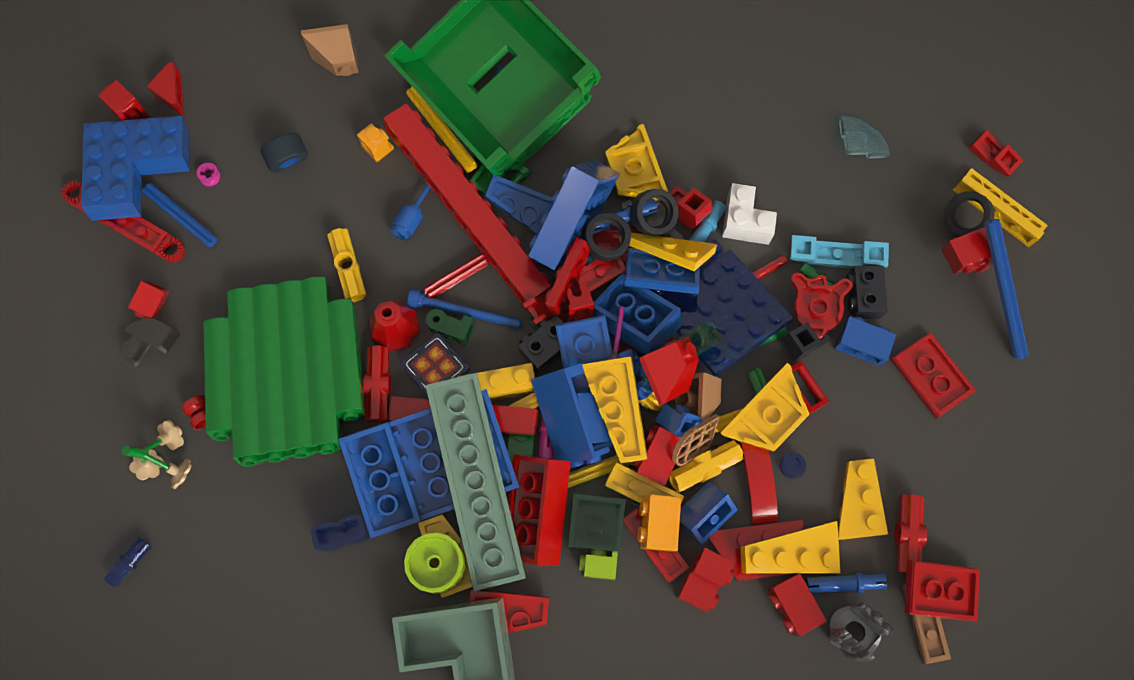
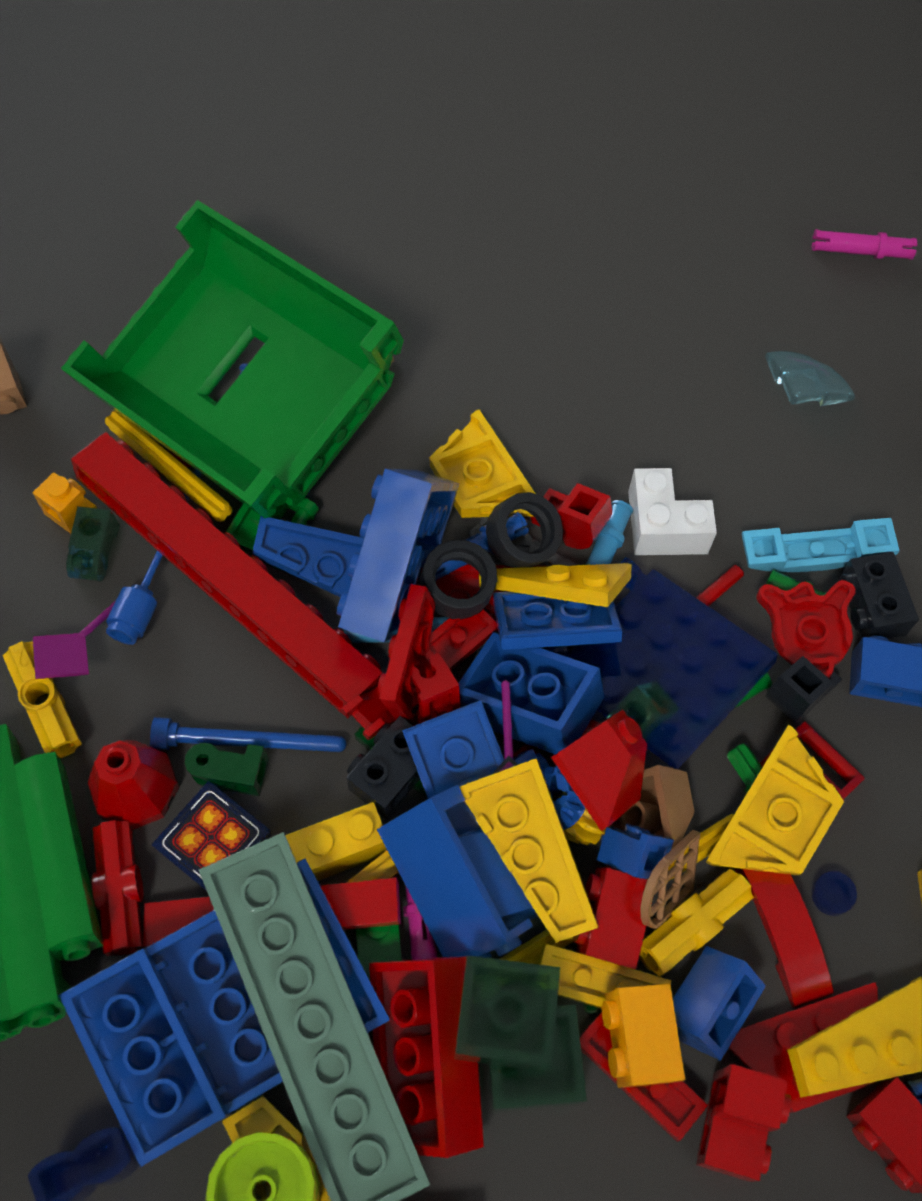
camera: 10 degrees left, 10 degrees down
(364, 240) = (64, 653): none -> magenta piece
(388, 172) = (91, 543): none -> clear green leg
(456, 276) = (225, 686): red axle -> none
(584, 496) = (508, 1013): none -> clear green brick
(599, 565) = (552, 1133): lime brick -> none
(920, 47) = (875, 245): none -> dark pink pin

